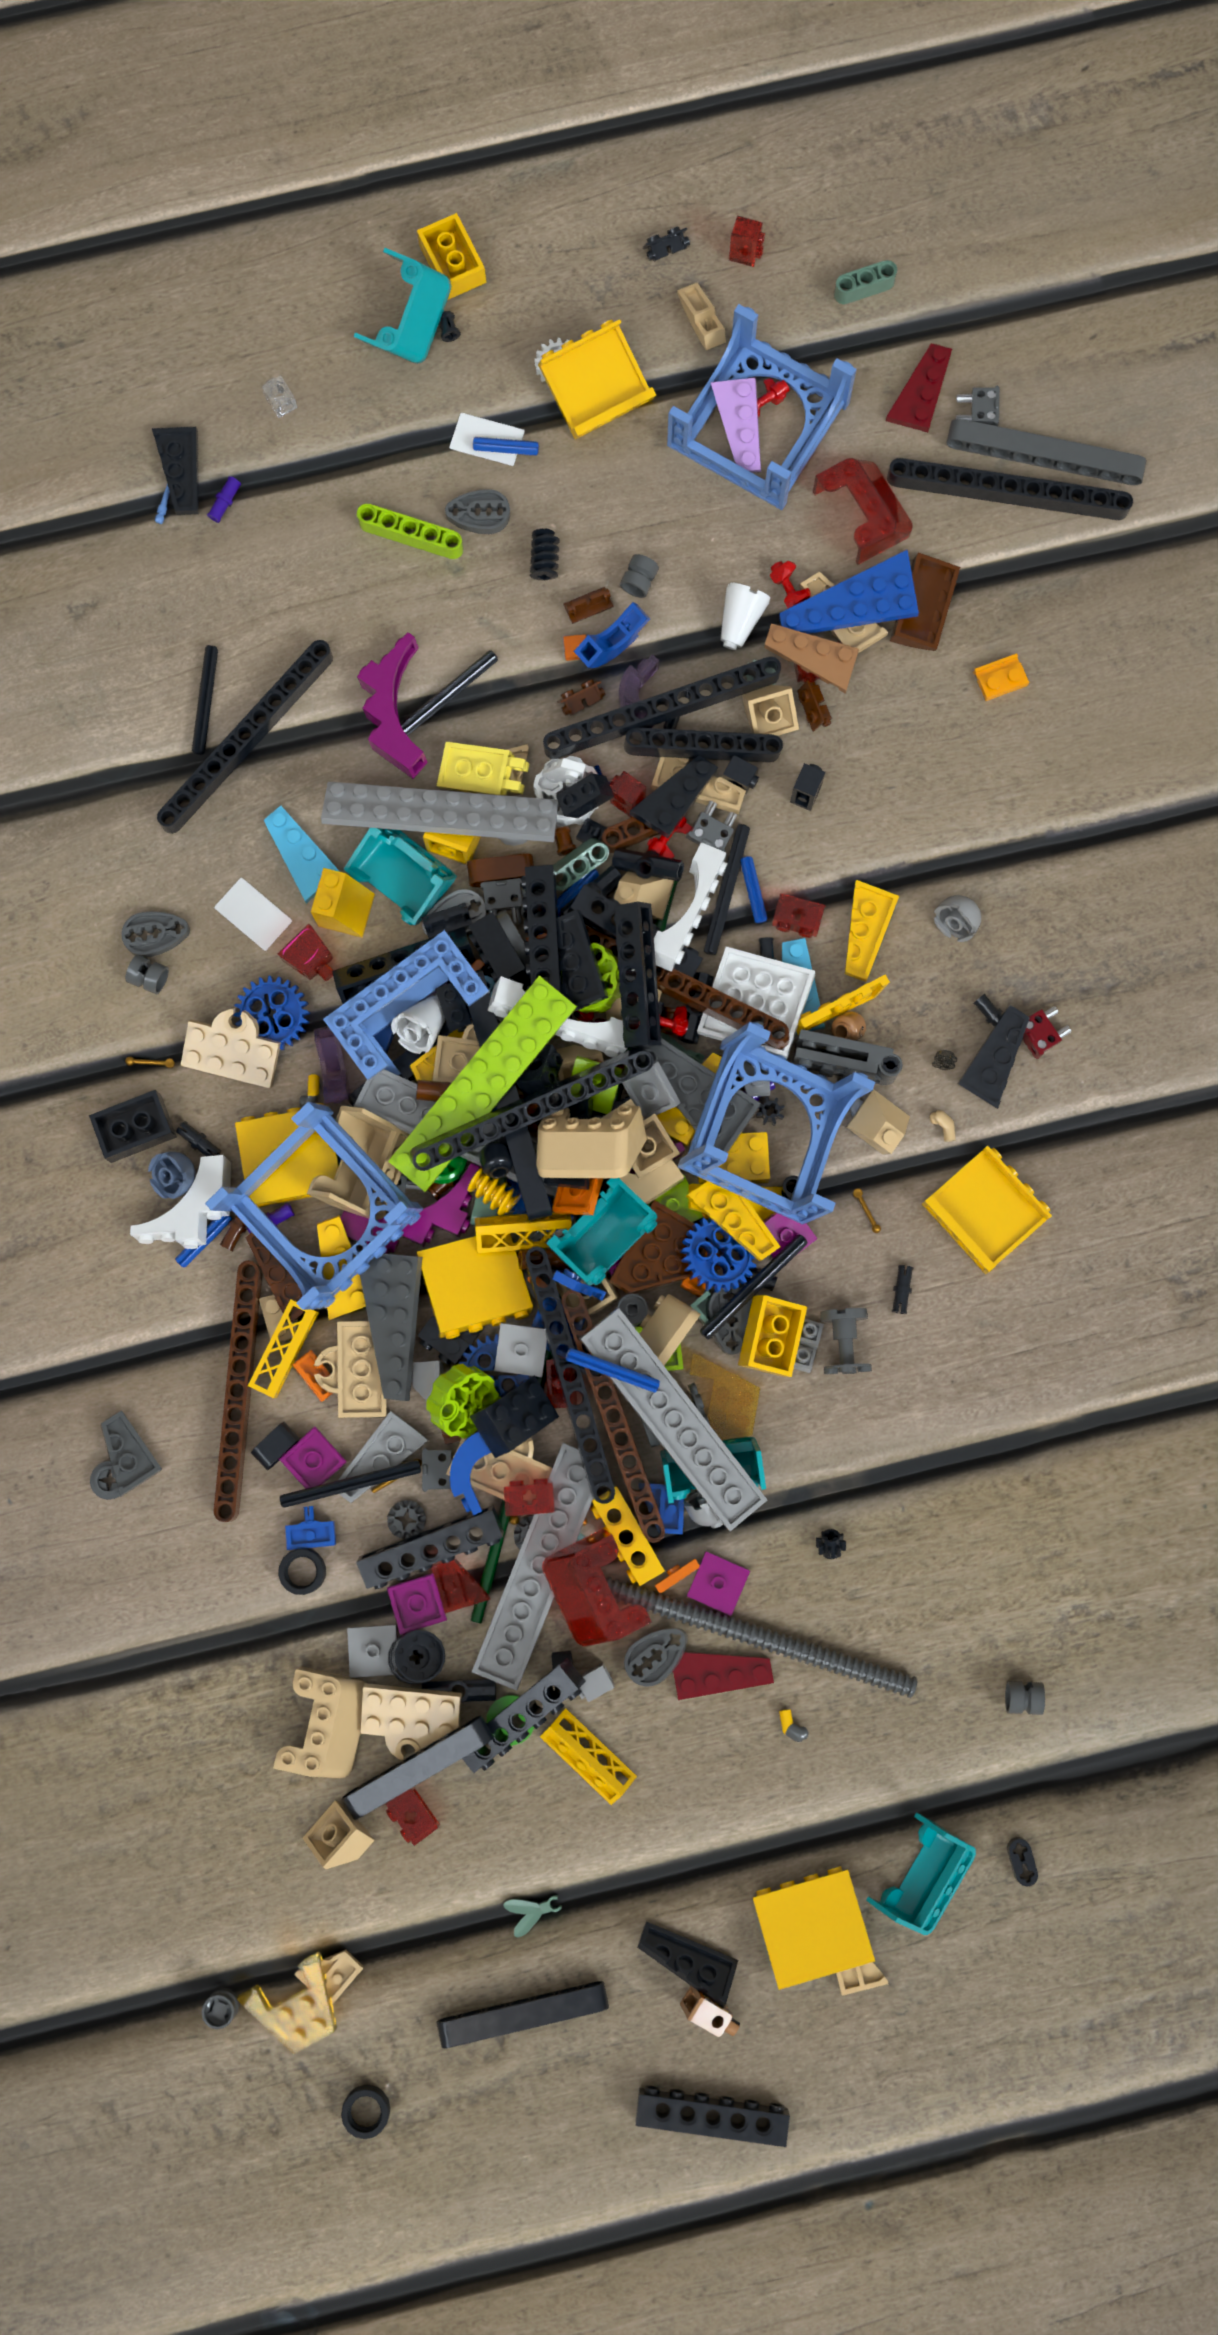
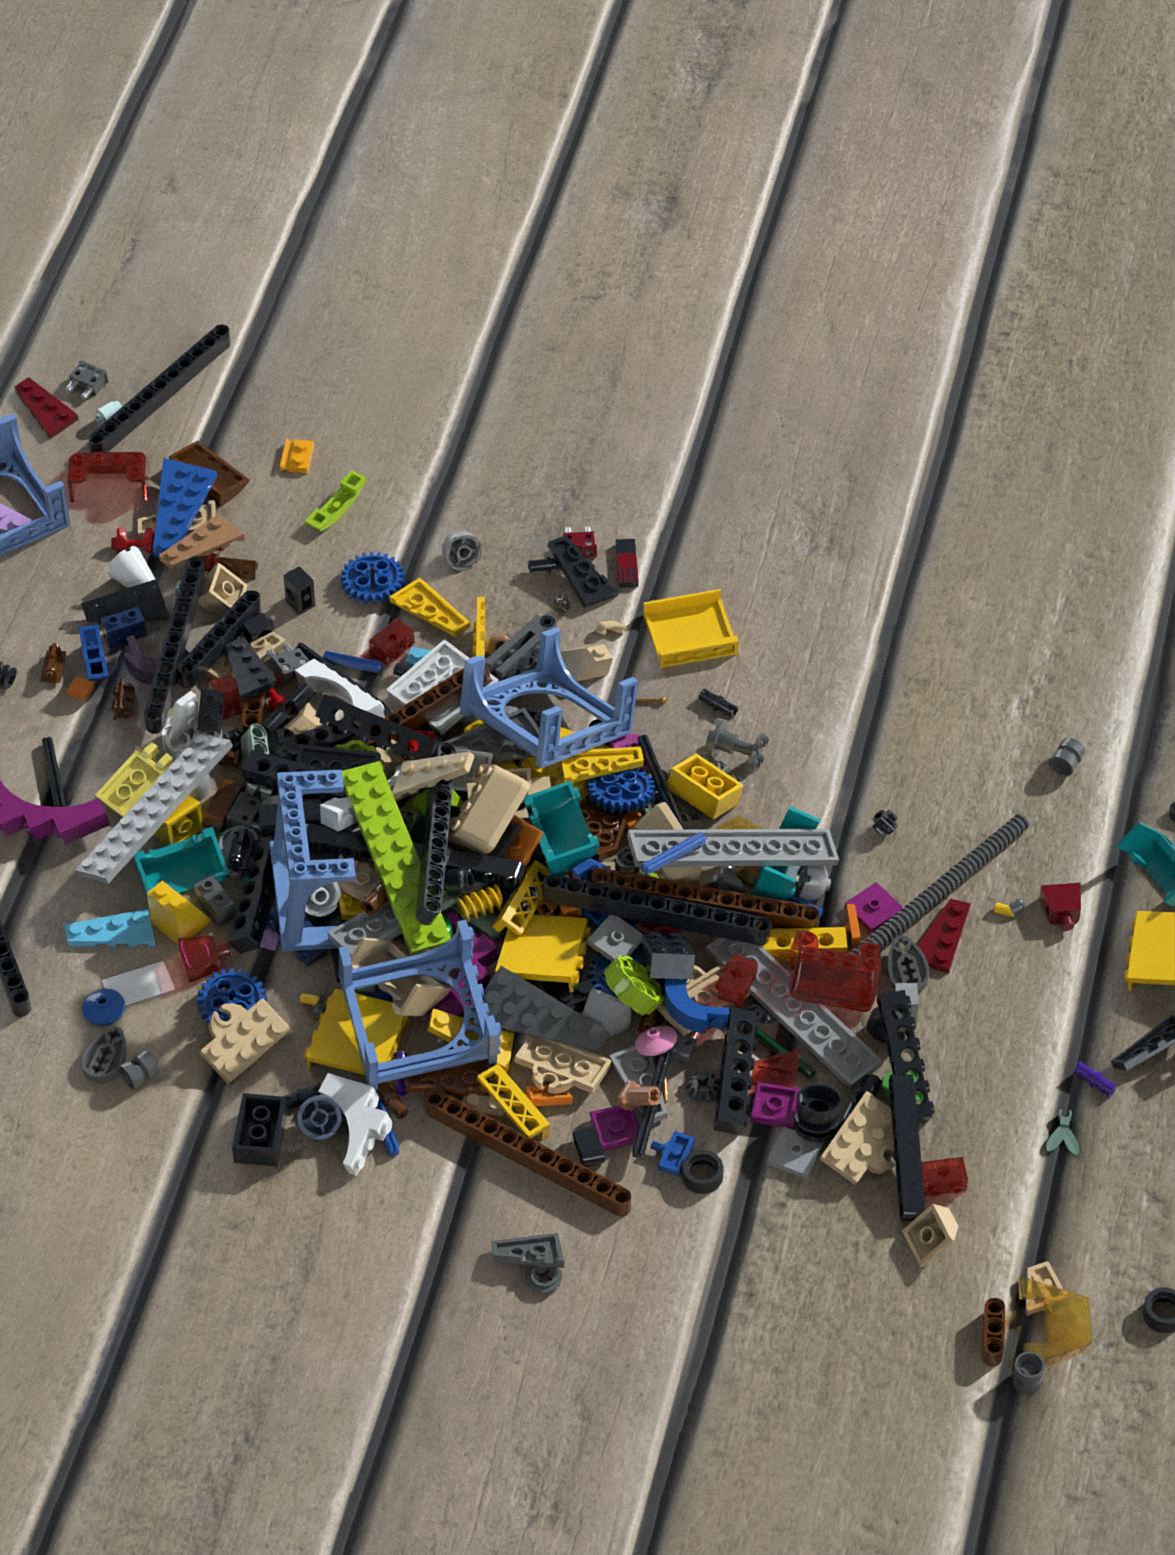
camera: 65 degrees left, 30 degrees down
(169, 1062) = (221, 1093): pearl gold hinge -> none
(212, 907) = (105, 1013): none -> blue dish
(244, 1956) = (990, 1340): none -> reddish brown beam
(332, 1065) = (303, 978): clear purple arch -> none
(332, 1726) = (862, 1211): tan windscreen -> none
(343, 1464) = (634, 1094): none -> nougat piece
(378, 929) = (214, 901): none -> dark grey brick
(425, 1460) = (656, 1040): none -> bright pink dish
(522, 2014) = (1141, 1171): black beam -> none
(585, 1760) = (963, 1045): yellow fence -> none
(596, 1062) = (430, 771): none -> tan wing
(614, 1916) = (1095, 1079): none -> dark purple pin
(638, 578) = (56, 622): dark grey wheel -> none
(669, 643) = (122, 625): none -> dark blue brick
(702, 630) = (145, 596): none -> black wing
(821, 1782) = (1061, 903): none -> dark red torso
(861, 832) = (357, 577): none -> blue gear
(947, 455) = (107, 411): none -> light aqua brick
(955, 756) = (339, 503): none -> lime slope
(1044, 1095) = (627, 563): none -> tile
(1046, 452) = (149, 359): dark grey beam -> none

